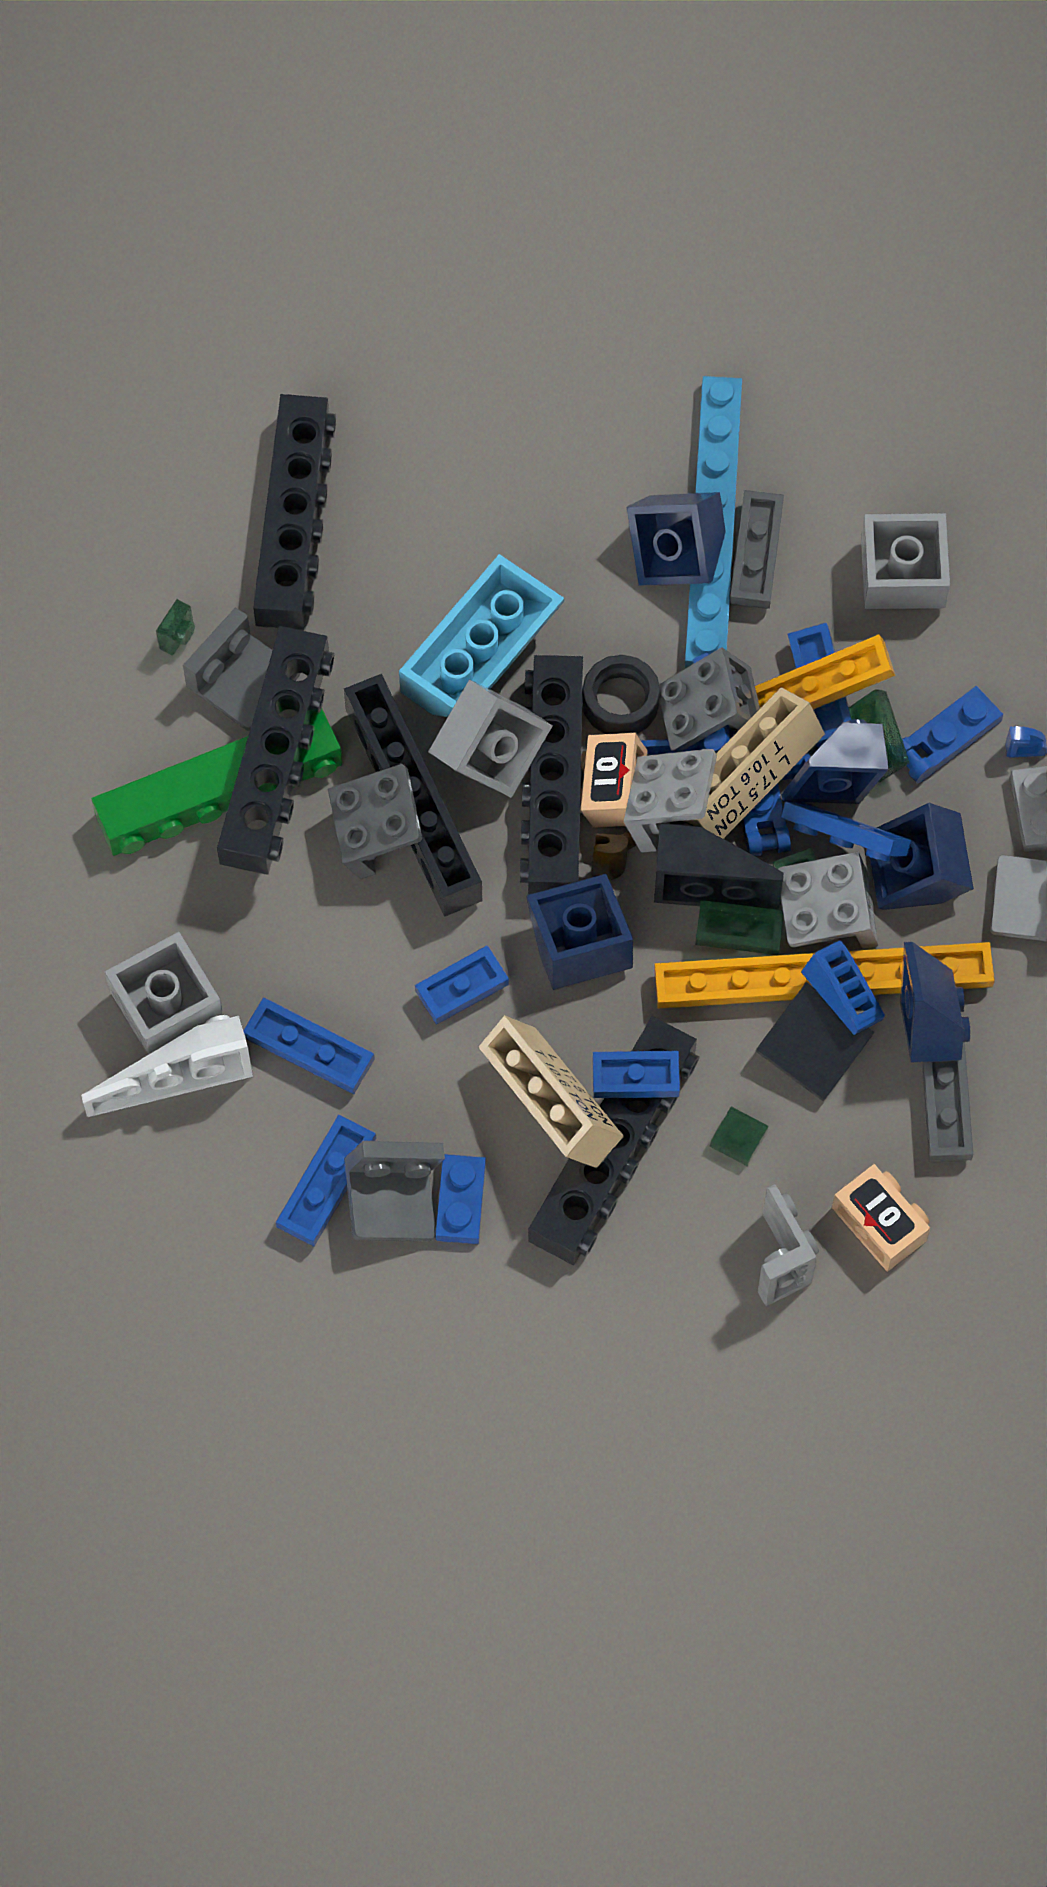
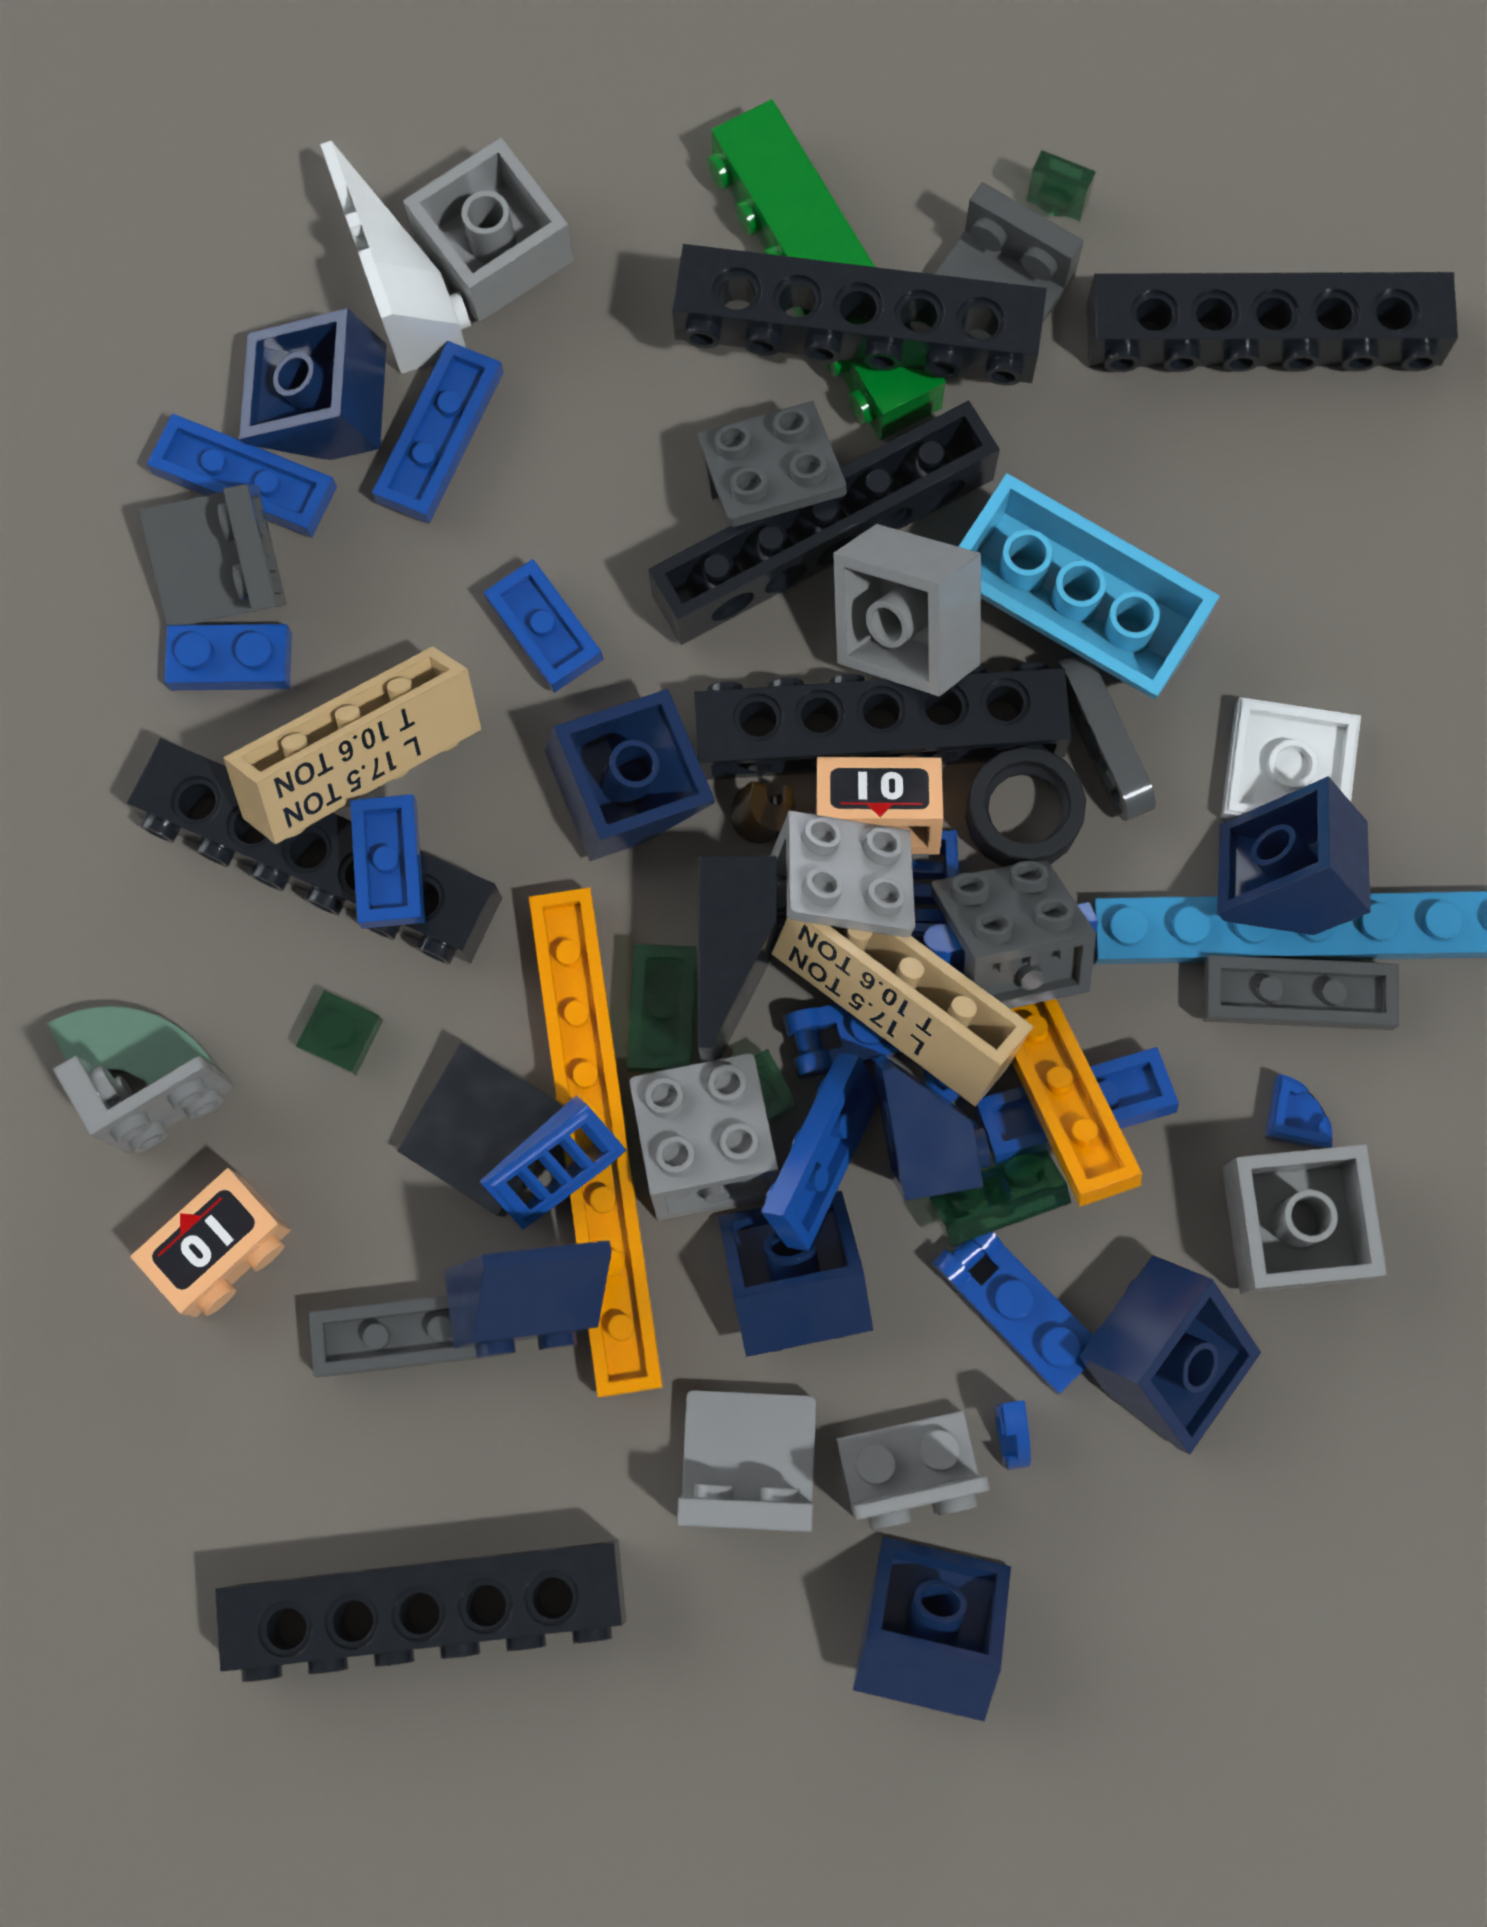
camera: 90 degrees right, 10 degrees up
(269, 1123) = (314, 387): none -> dark blue slope
(580, 640) = (1106, 739): none -> dark grey beam
(597, 540) = (1284, 749): none -> white tile
(737, 1271) = (126, 1041): none -> sand green tile
(834, 563) = (1297, 1116): none -> blue tile
(980, 646) = (1171, 1351): none -> dark blue slope

